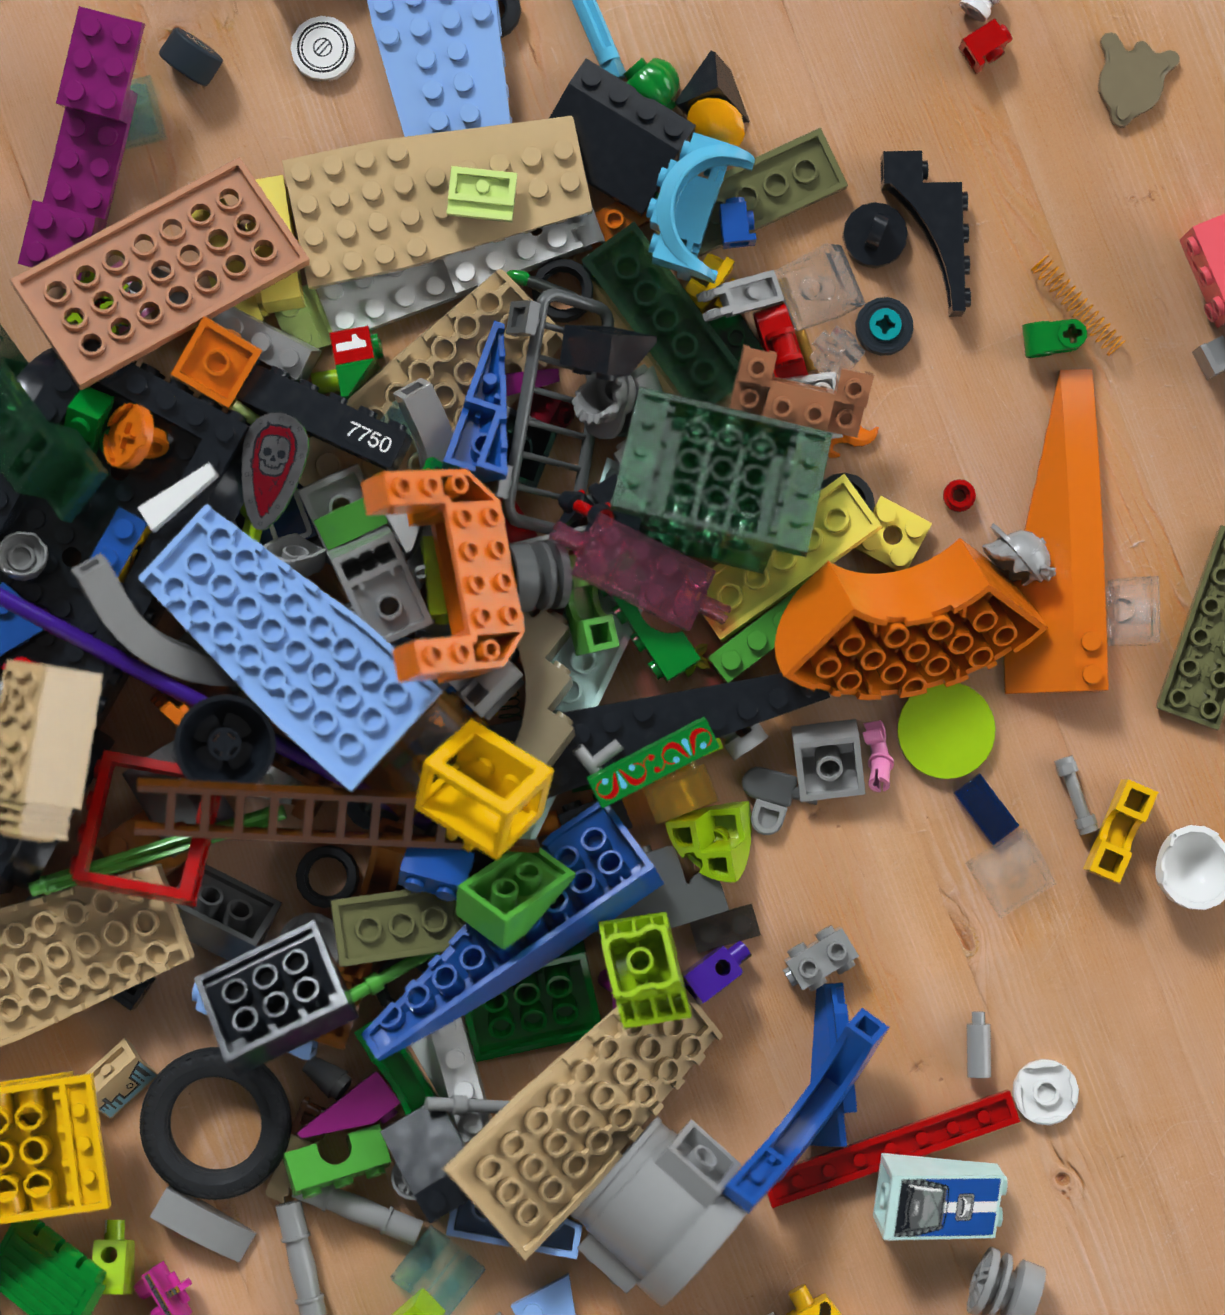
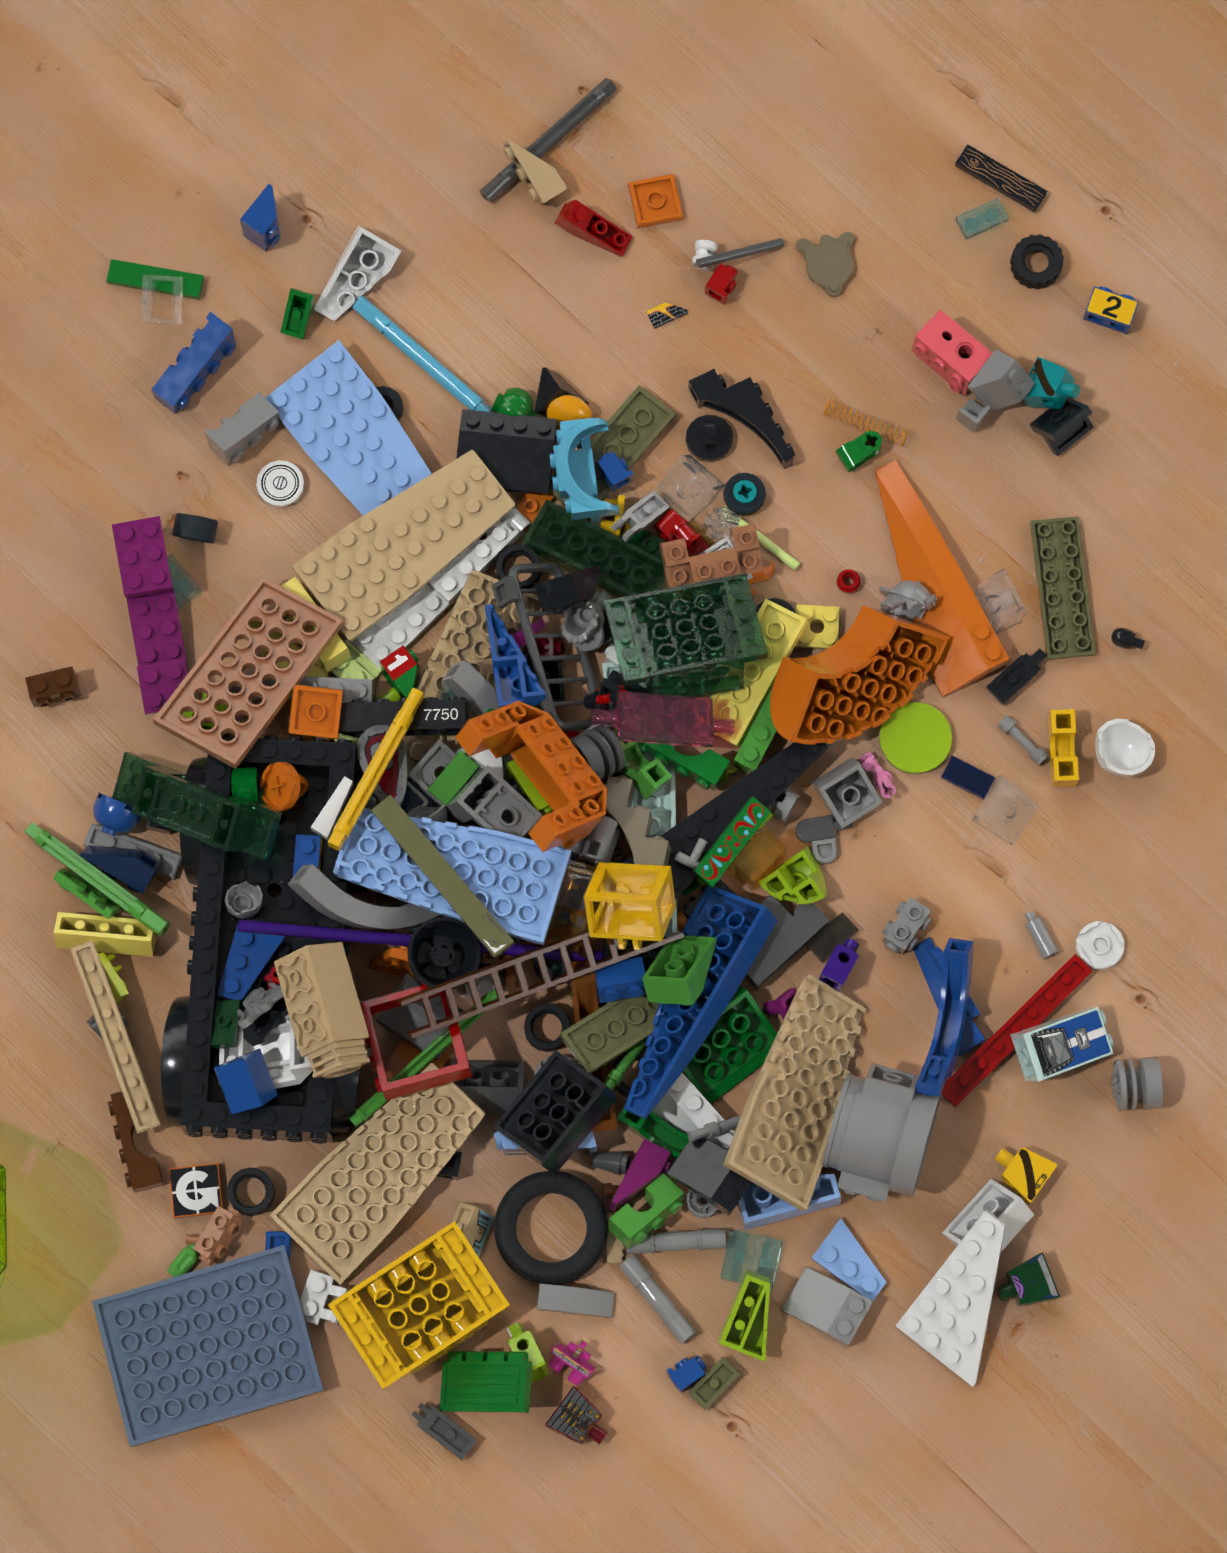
camera: 30 degrees left, 10 degrees down
(251, 472) = (375, 770): none -> yellow piece
(267, 649) = (442, 876): none -> olive tile
(481, 194) = (438, 525): yellowish green plate -> none
(524, 279) = (497, 570): piece -> none
(644, 970) = (793, 978): lime slope -> none
(883, 403) = (773, 548): none -> yellowish green bar
(897, 50) = (664, 313): none -> sticker
(1025, 16) = (739, 253): none -> dark grey bar
(1106, 712) = (1016, 676): none -> black hinge

